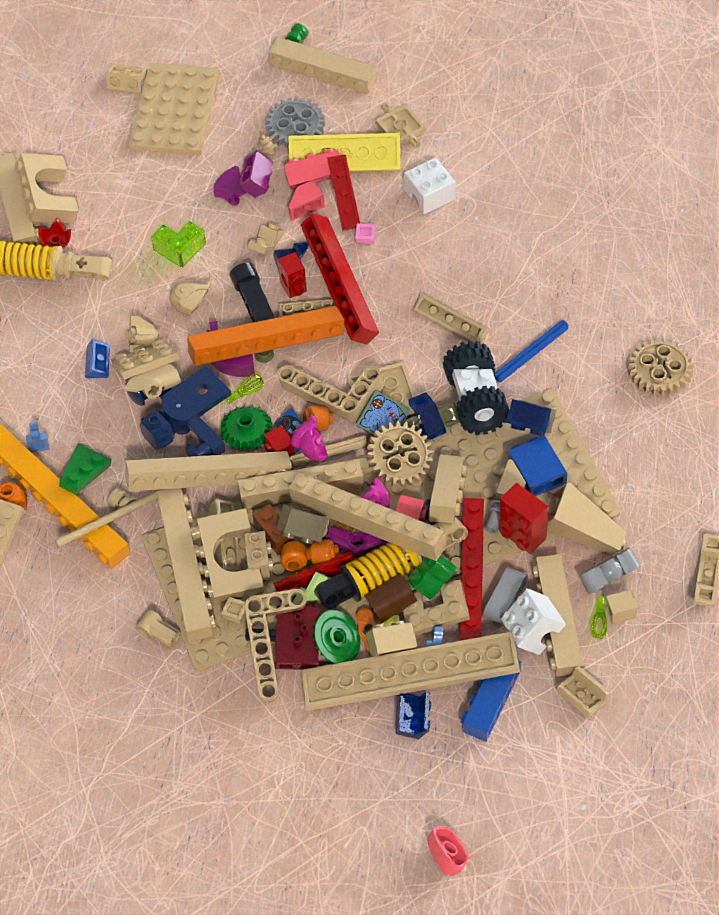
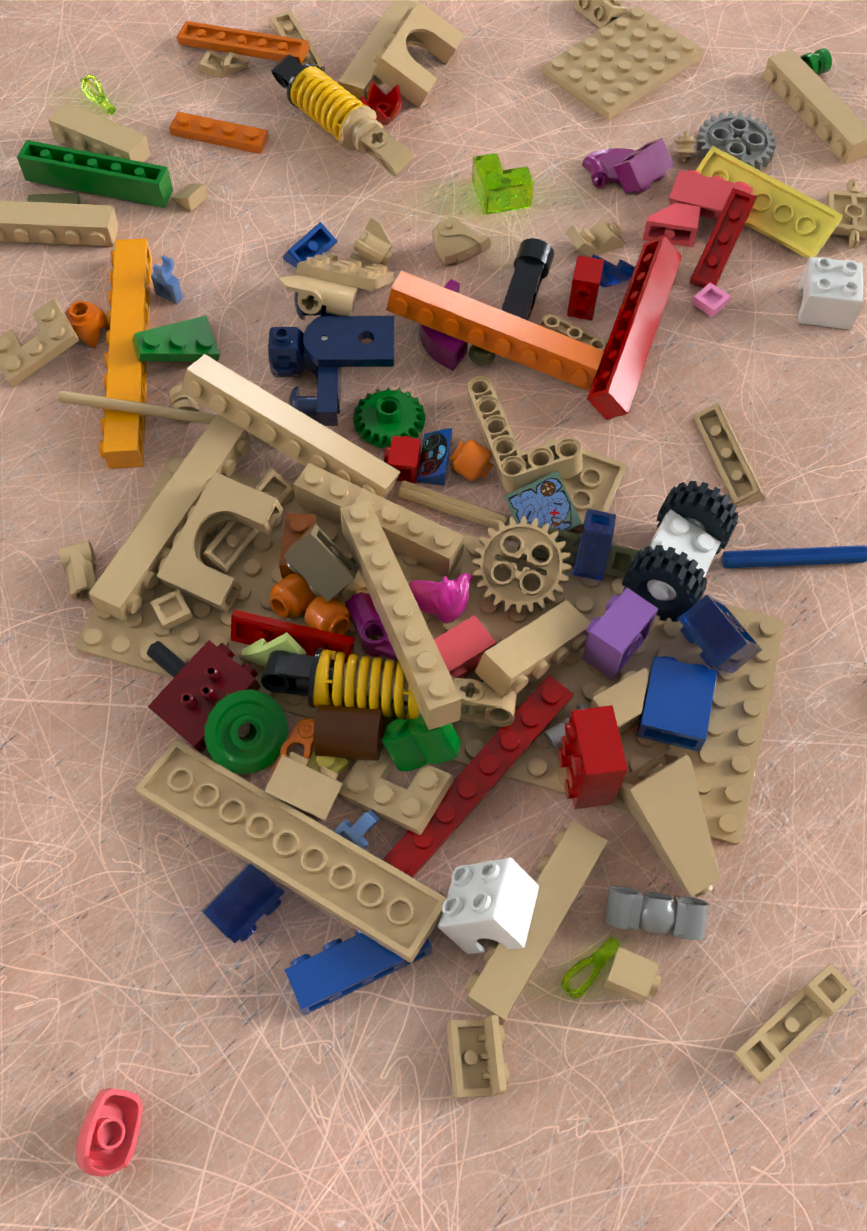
camera: 35 degrees right, 5 degrees up
(242, 390) = (419, 376): clear neon green piece -> none
(257, 553) = (253, 564): tan bracket -> none
(264, 637) = (158, 671): tan beam -> none
(309, 440) = (433, 477): dark pink hair -> none
(480, 452) = (618, 632): none -> medium lavender brick
(505, 594) = (496, 837): light grey beam -> none

